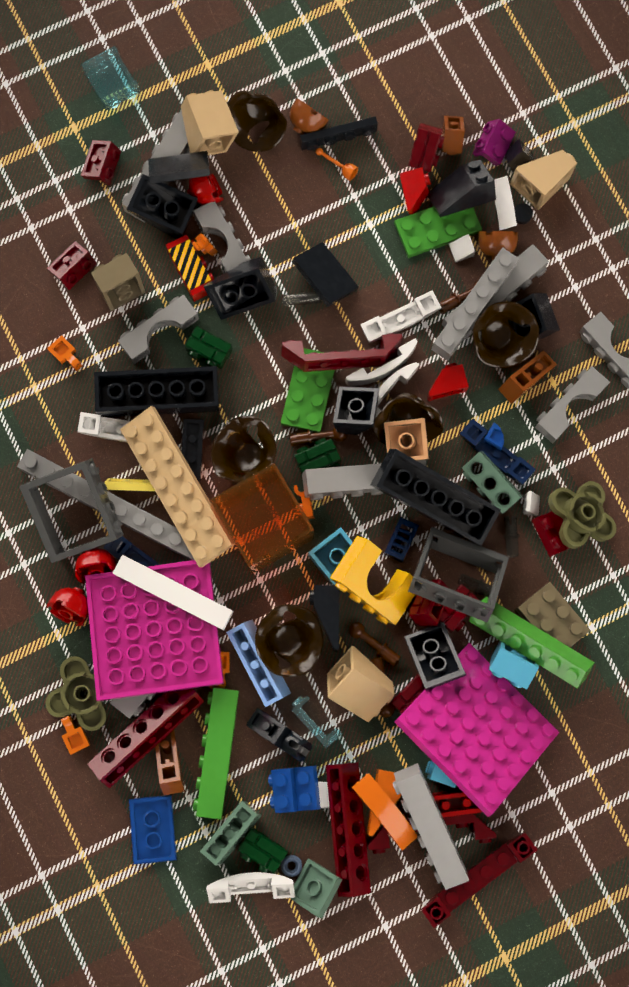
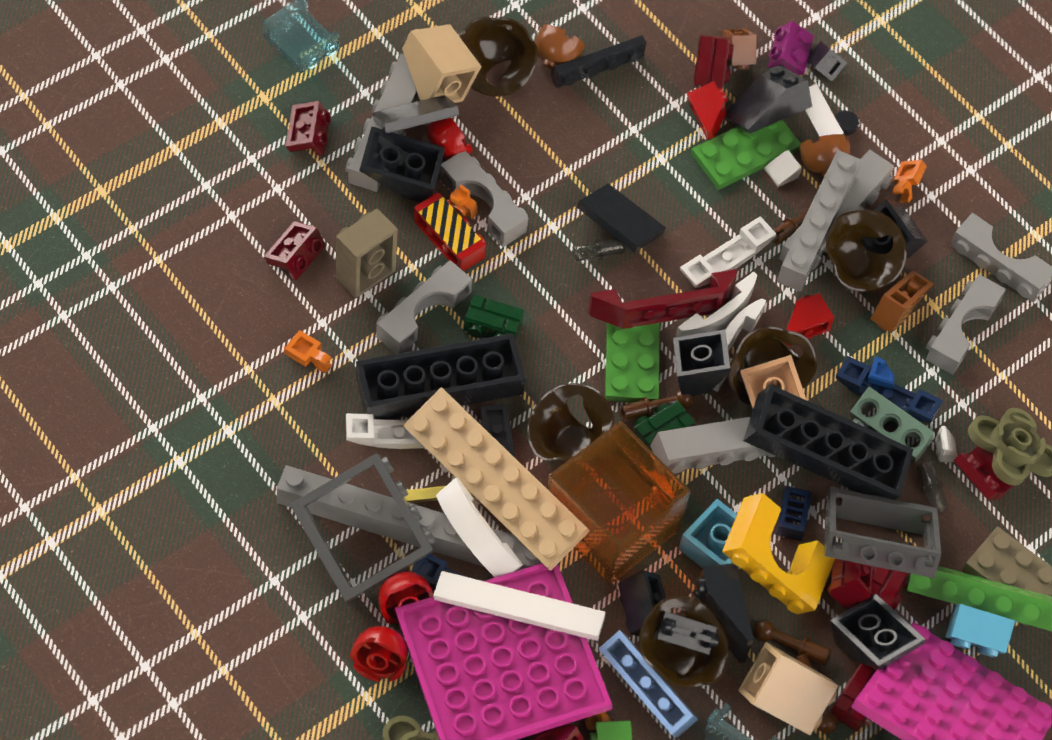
camera: 15 degrees left, 20 degrees down
(151, 527) = (475, 531): none -> white slope
(242, 289) = (521, 245): black slope -> none
(268, 595) = (639, 597): none -> black brick
(294, 631) = (687, 633): none -> hinge
(348, 170) = (621, 101): orange hinge -> none
(543, 177) = (861, 76): tan slope -> none
(559, 269) = (908, 174): none -> orange plate

